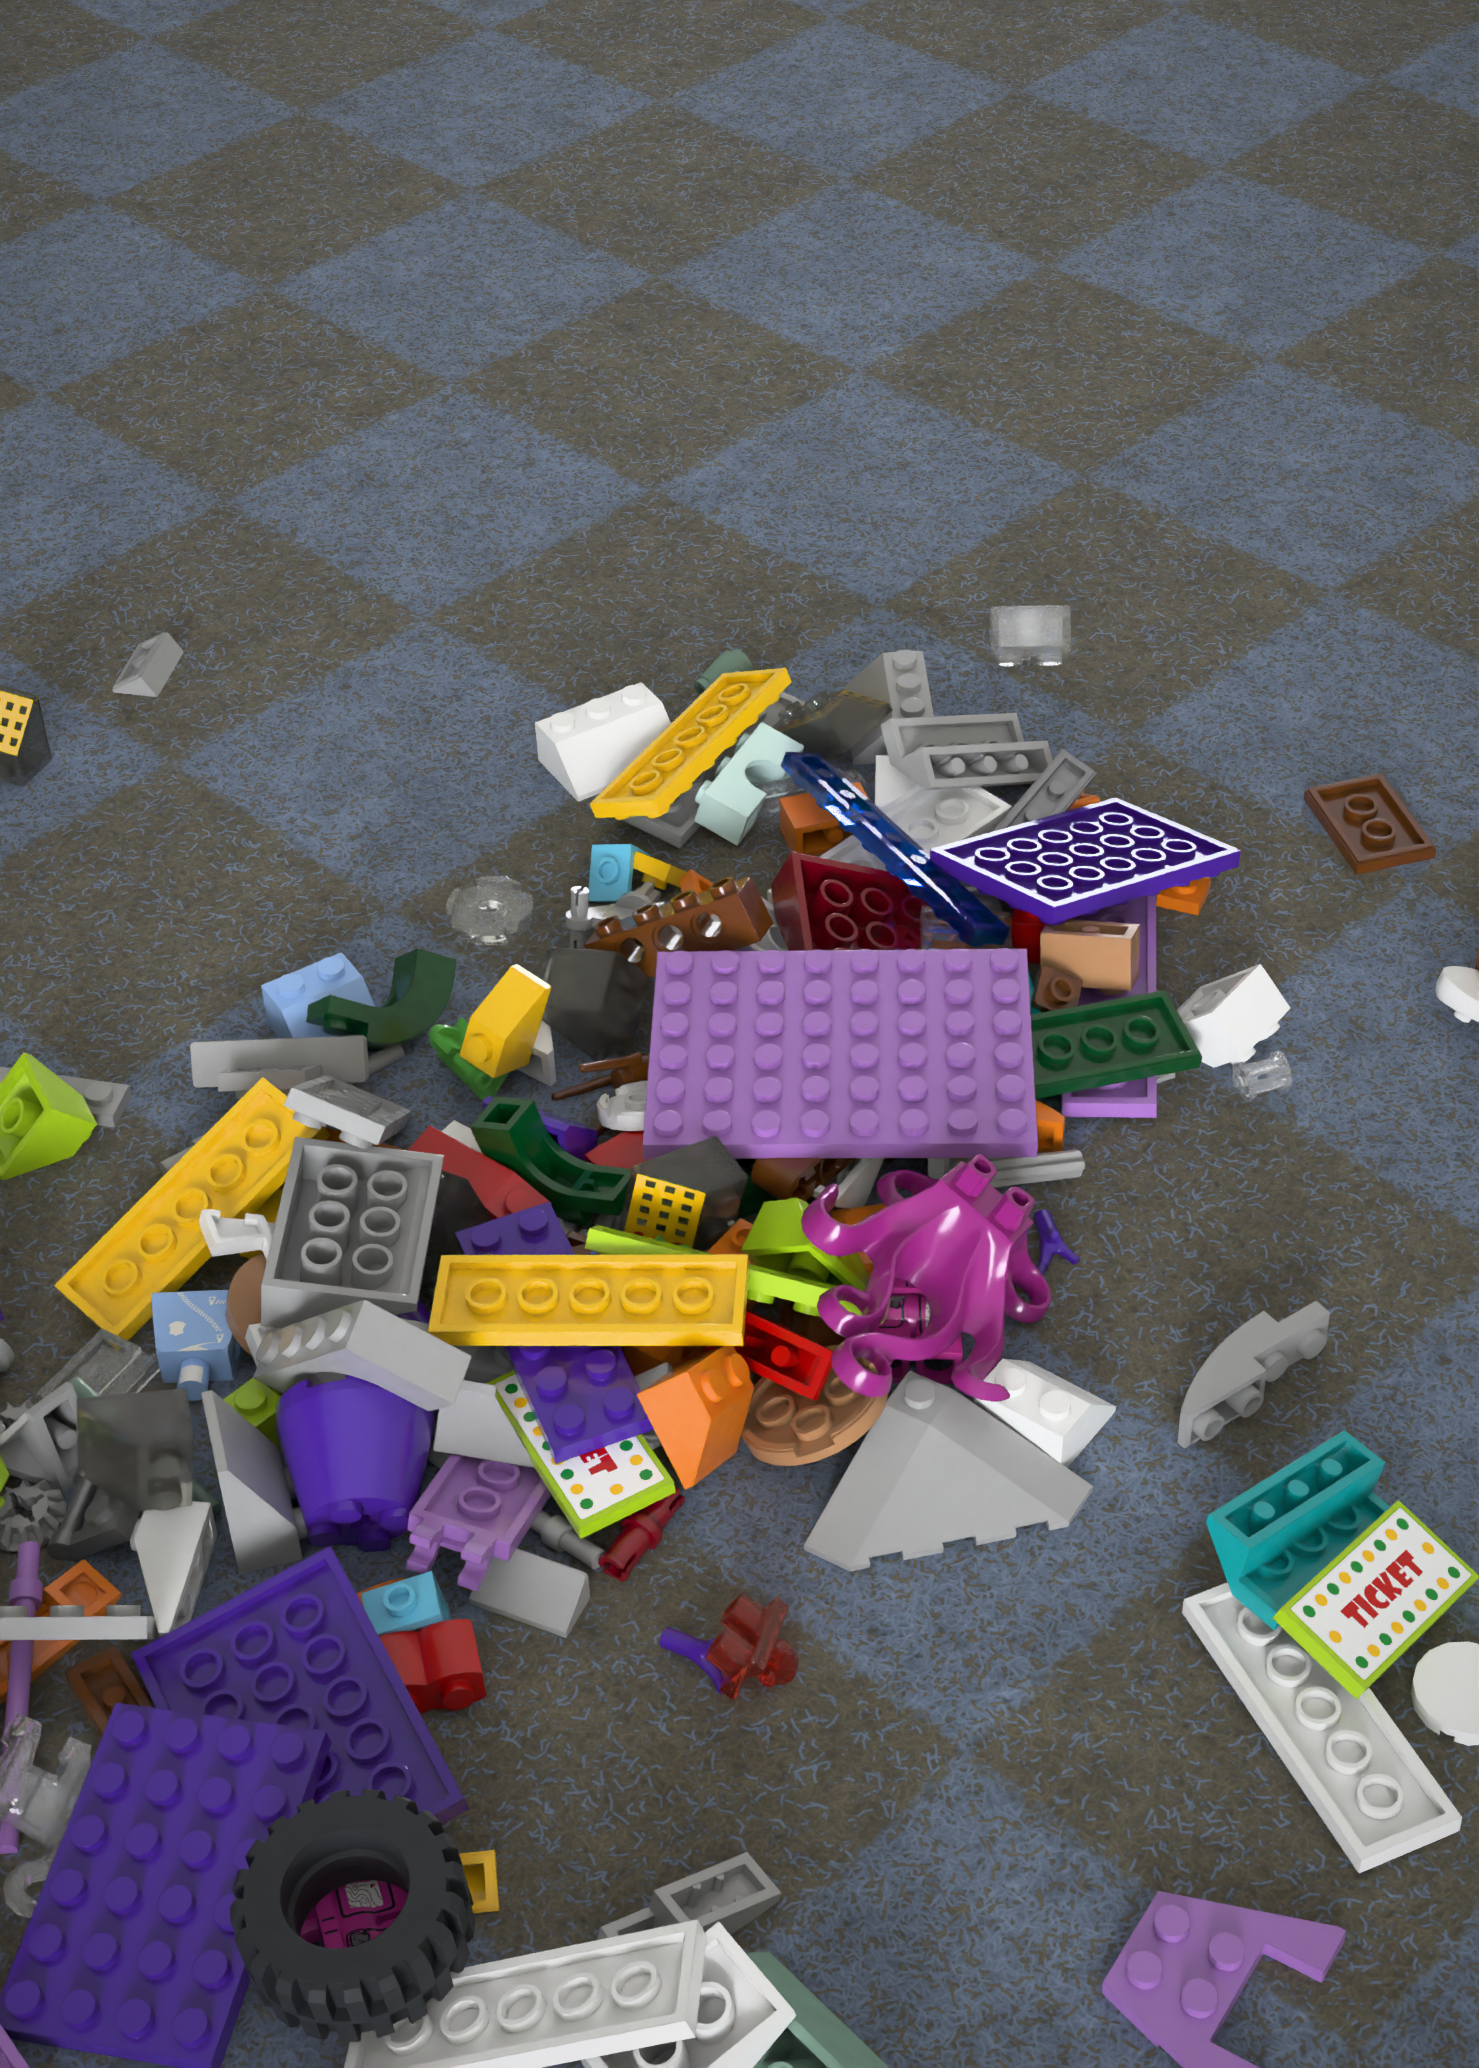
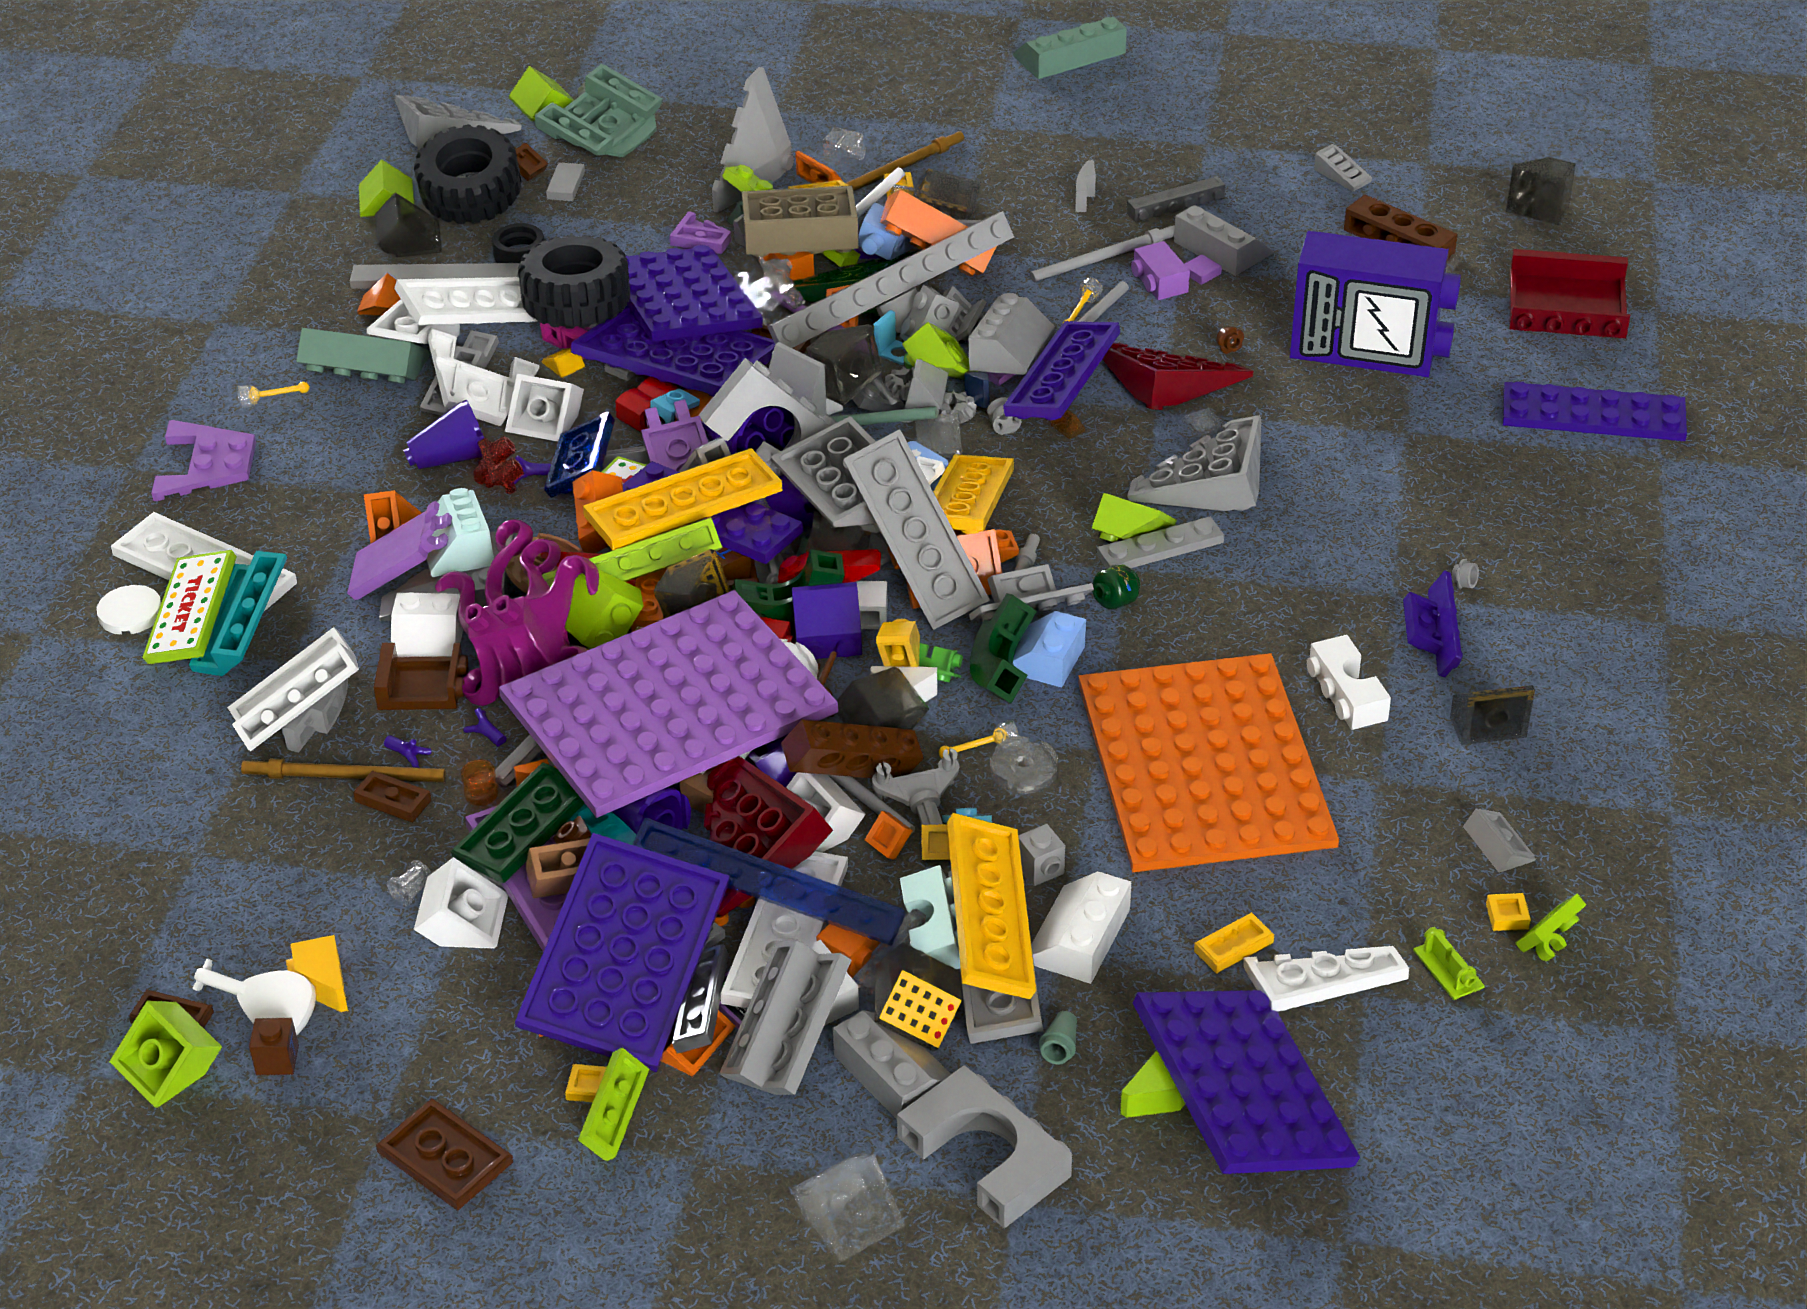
camera: 145 degrees right, 0 degrees up
(90, 820) = (1337, 667): none -> white arch
(160, 1048) = (1117, 585): none -> dark green head
(213, 580) = (1542, 934): none -> lime plate
(230, 607) = (1508, 911): none -> yellow plate
(302, 848) = (1205, 763): none -> orange plate
(335, 593) = (1447, 965): none -> lime hinge
(449, 630) = (1324, 976): none -> white wing
(473, 951) = (1003, 731): none -> hinge
(487, 681) = (1233, 943): none -> yellow plate
(572, 809) = (1041, 854): none -> light grey brick
(585, 1753) = (543, 407): none -> white slope
(614, 570) = (1245, 1081): none -> dark purple plate
(617, 1598) = (578, 453): none -> clear blue plate
(667, 1831) = (485, 391): none -> white wing
(681, 607) = (1151, 1091): none -> lime slope
(794, 1742) = (447, 439): none -> dark purple cone
(860, 595) = (969, 1104): none -> light grey arch
(916, 1505) = (468, 535): none -> light aqua slope
(985, 1636) = (387, 512): none -> orange slope
(1019, 1513) = (397, 551): none -> medium lavender tile
(1094, 1342) = (419, 681): none -> reddish brown panel
(1109, 1153) = (479, 782): none -> clear orange wheel
(1169, 1258) = (407, 749): none -> dark purple bar
(1184, 783) = (613, 1104): none -> lime plate
(1194, 818) = (584, 1082): none -> yellow tile
(1225, 1193) = (392, 796): none -> reddish brown plate
(1290, 1335) = (293, 688): none -> white slope
(1351, 1304) = (279, 768): none -> pearl gold bar
(1419, 1020) = (320, 964): none -> yellow slope

